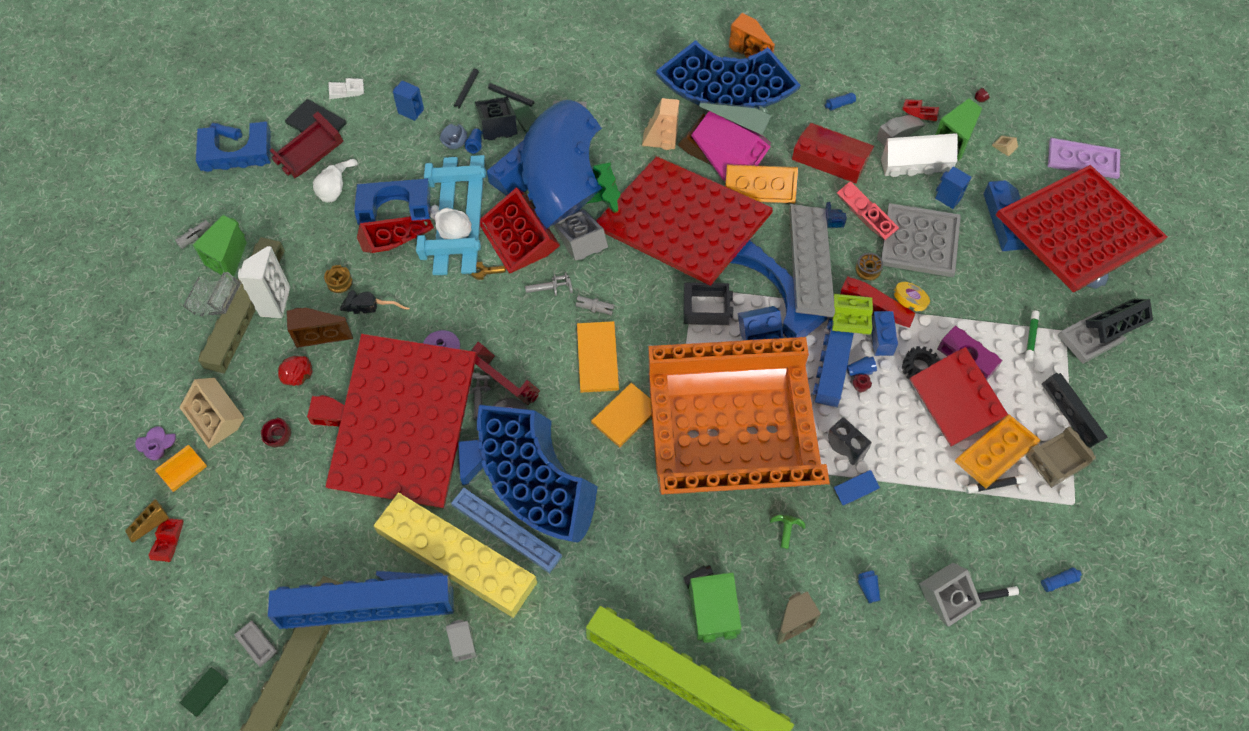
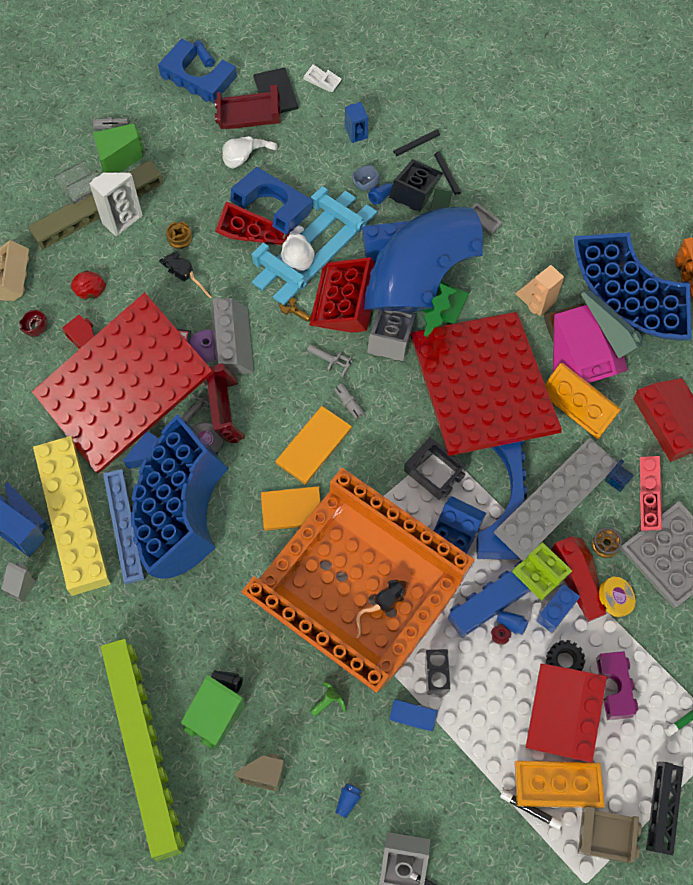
camera: 40 degrees right, 5 degrees up
(316, 327) = (123, 260): reddish brown slope -> none
(454, 322) = (231, 335): none -> light grey slope
(764, 420) = (385, 599): none -> black animal

